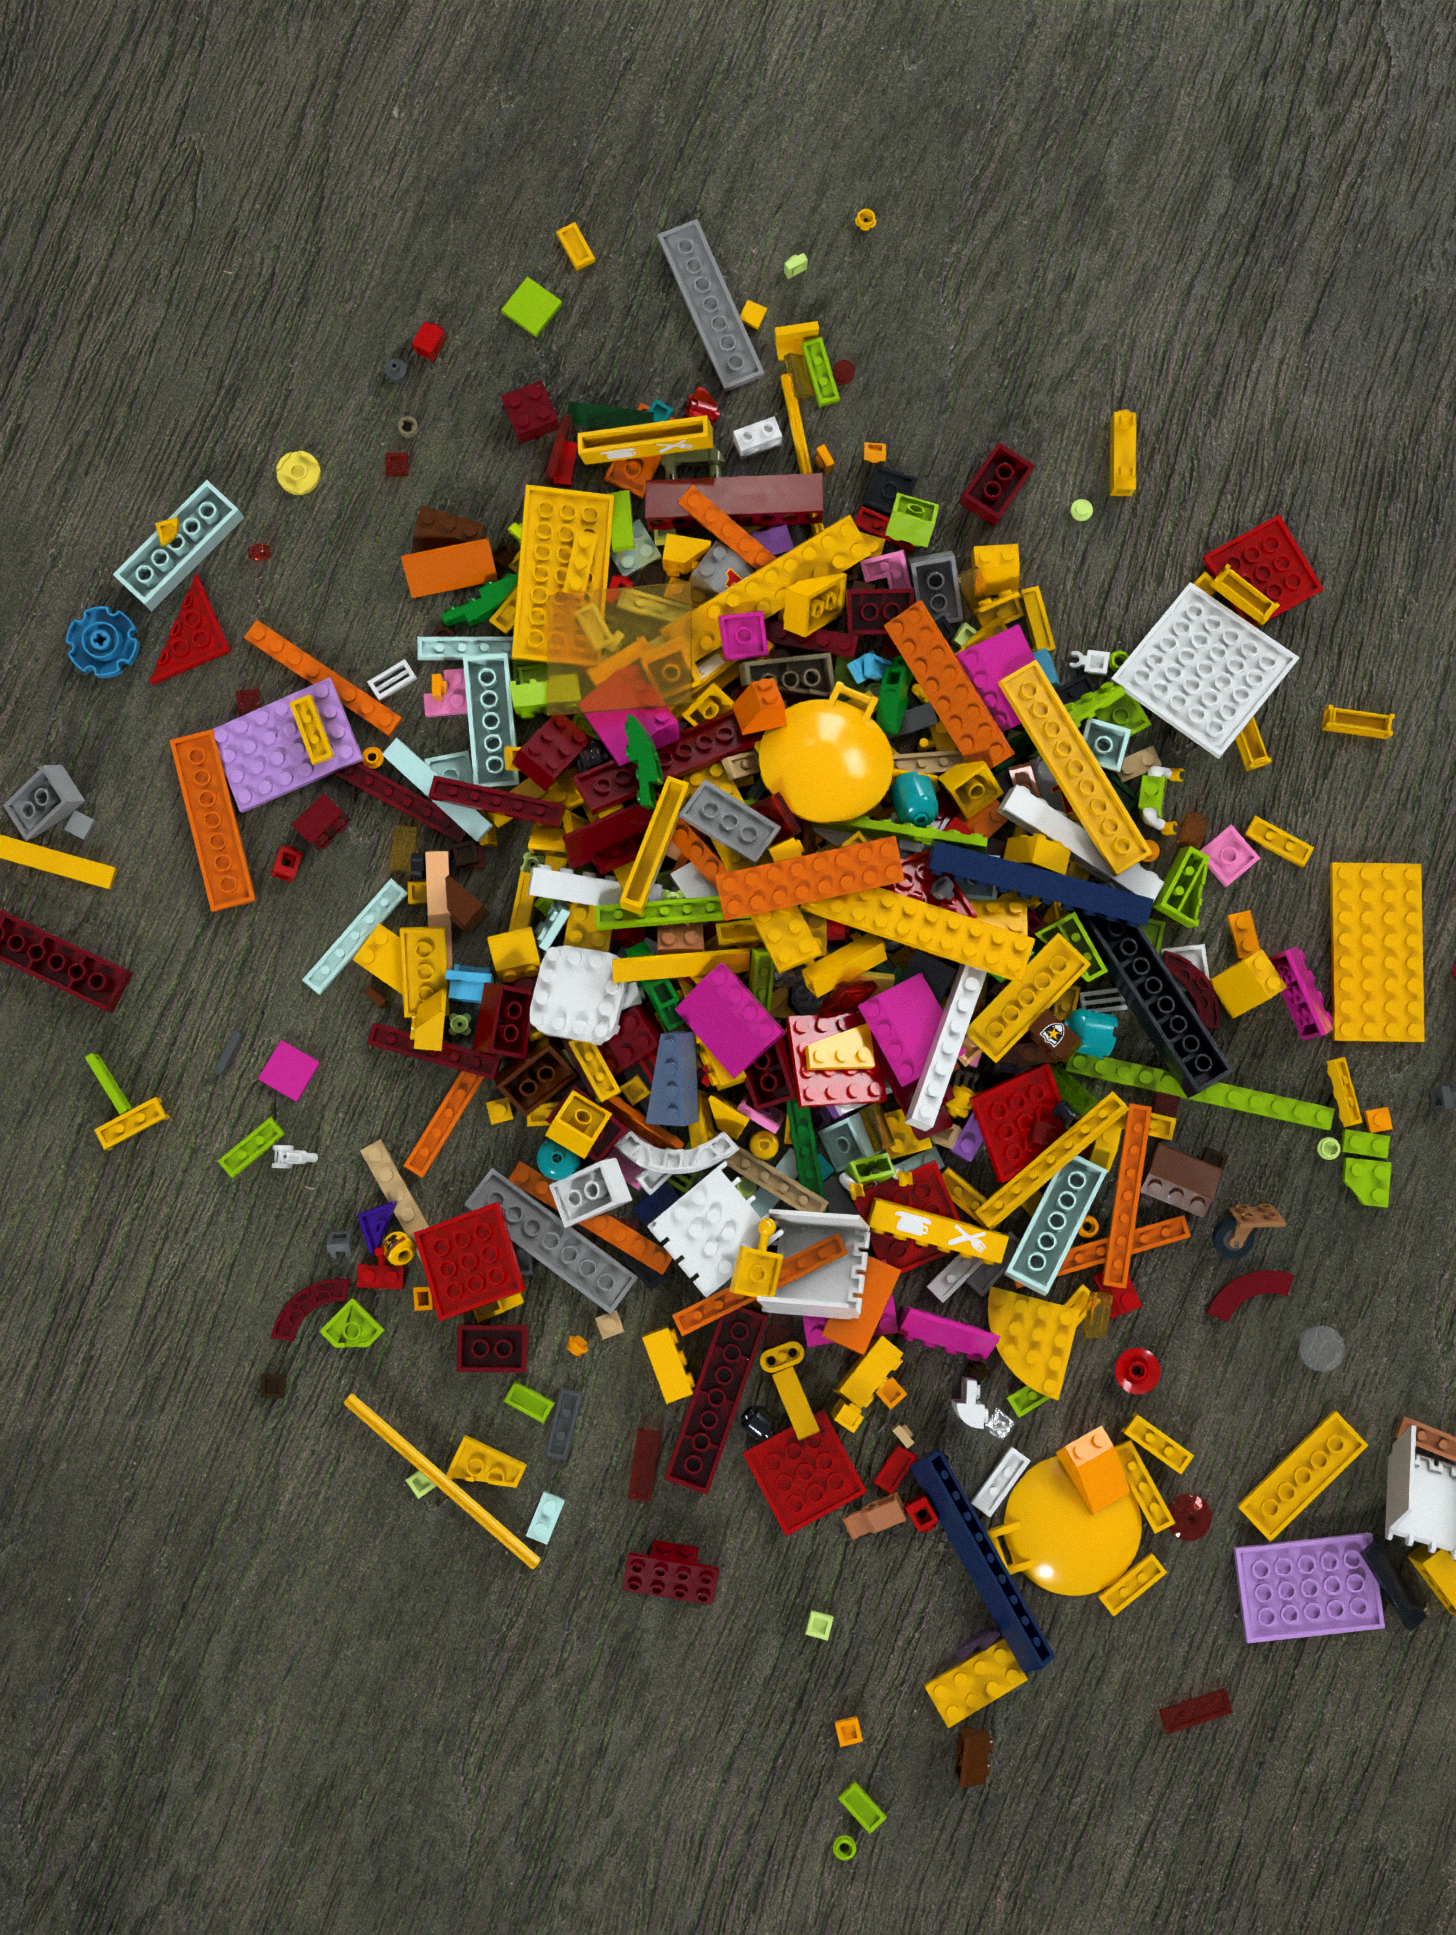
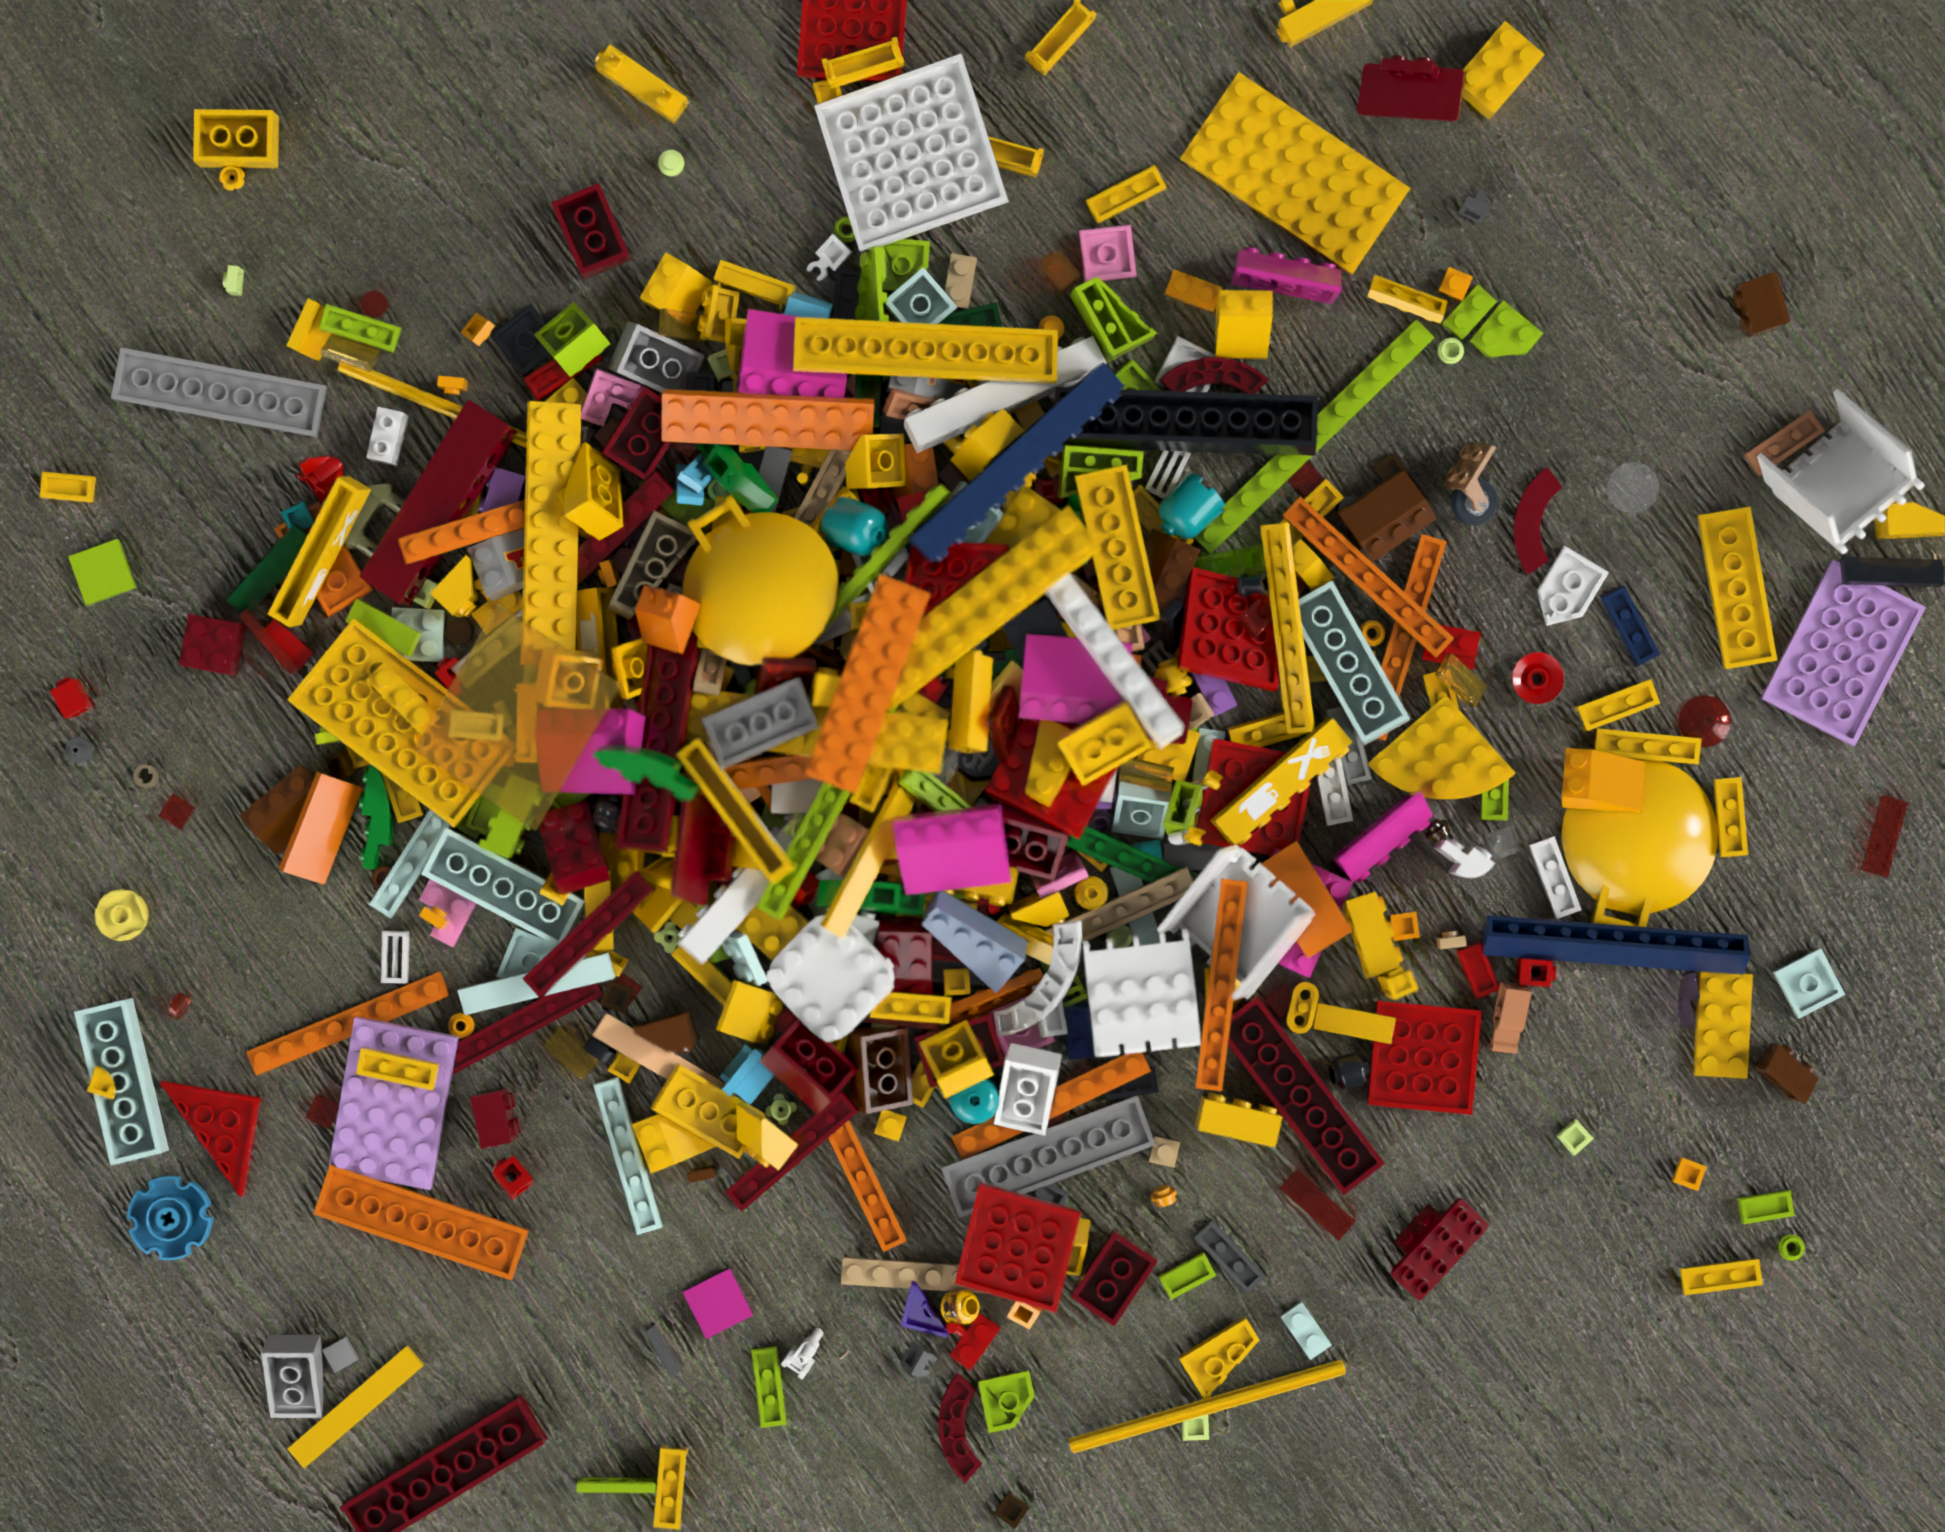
camera: 50 degrees left, 5 degrees up
(743, 636) = (581, 586): dark pink tile -> none
(753, 314) = (256, 356): yellow tile -> none
(757, 1269) = (1206, 979): yellow plate -> none
(788, 1808) = (1721, 1276): none -> yellow plate
(880, 1078) = (1104, 742): none -> yellow plate
(895, 203) = (236, 138): none -> yellow brick
(942, 888) = (961, 561): dark grey tile -> none
(1049, 1727) = (1808, 983): none -> light aqua plate
(1055, 1036) = (1171, 546): reddish brown brick -> none
(1153, 797) = (1002, 288): torso -> none
(1218, 1349) = (1569, 587): none -> white tile
(1220, 1414) = (1630, 626): none -> dark blue tile

